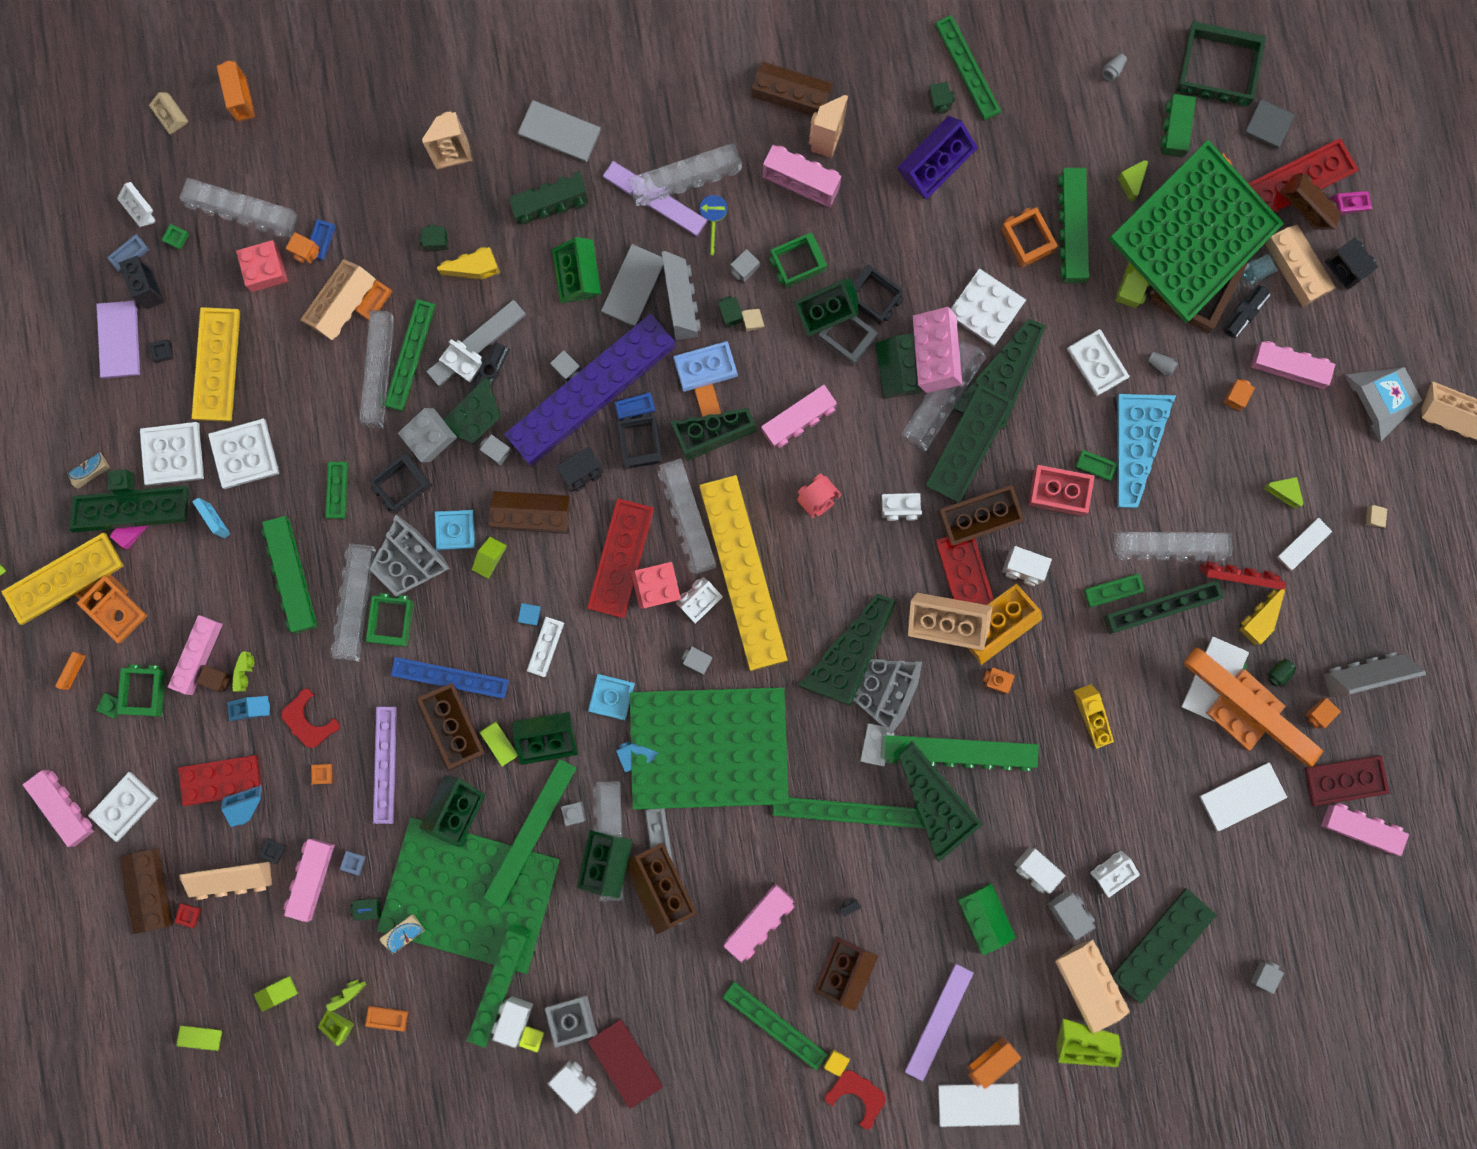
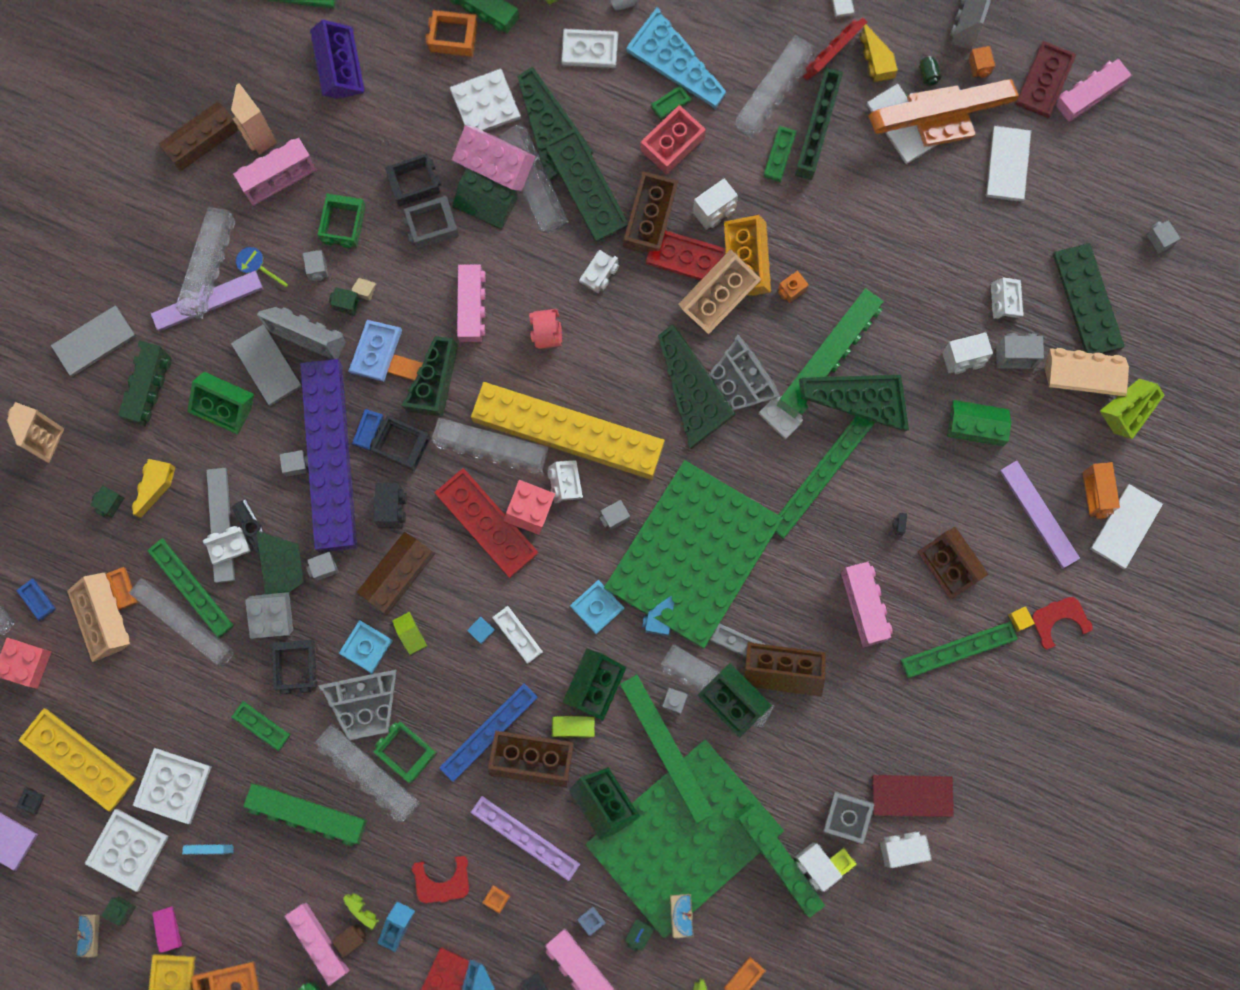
camera: 55 degrees left, 5 degrees down
(129, 509) = (148, 919): dark green plate -> none
(302, 248) = (33, 617): orange brick -> none
(828, 306) = (397, 219): dark green slope -> none
(940, 97) = (291, 26): dark green brick -> none
(1094, 715) = (866, 231): yellow slope -> none

